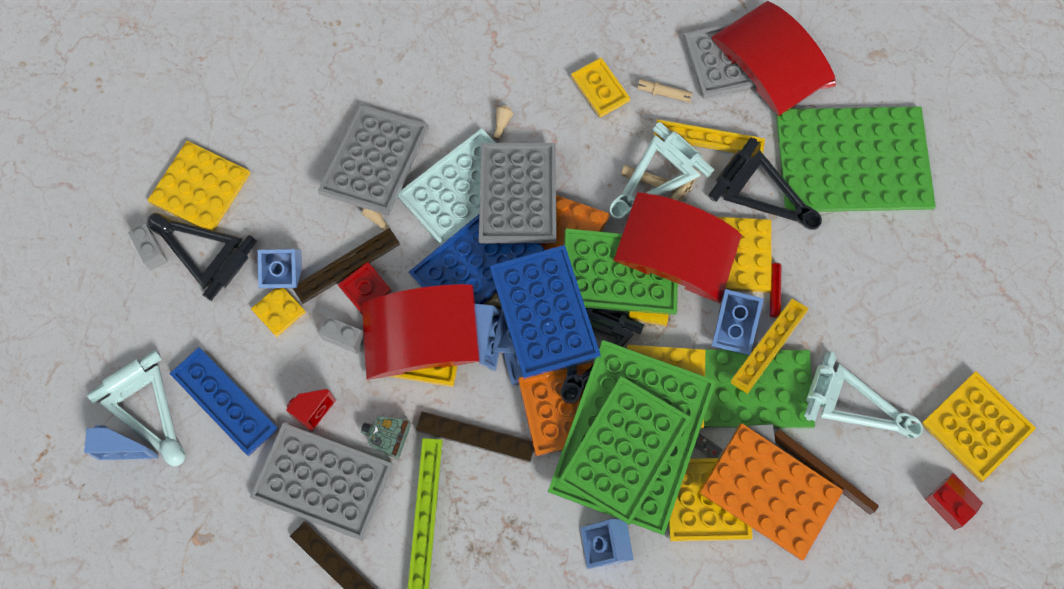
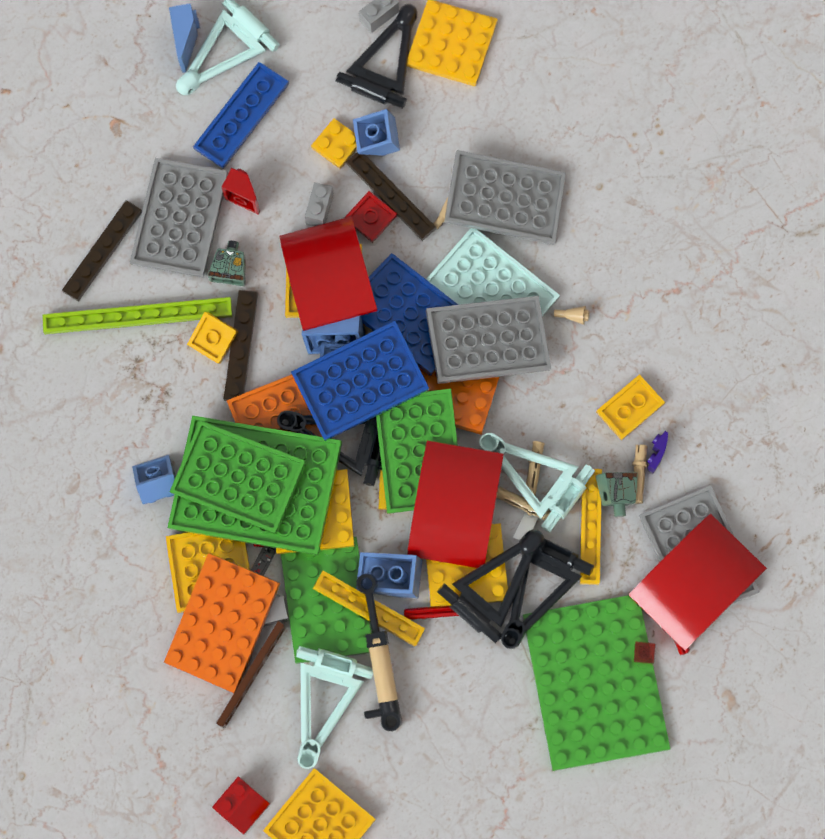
camera: 85 degrees right, 5 degrees up
(463, 462) = (212, 337): none -> yellow tile
(641, 68) = (659, 447): none -> dark purple slope
(680, 108) = (617, 490): none -> sand green torso
(703, 194) = (526, 524): none -> white sticker
(776, 250) = (473, 607): none -> black piece
(807, 340) = (381, 662): none -> piece
(836, 109) = (644, 652): none -> clear red plate

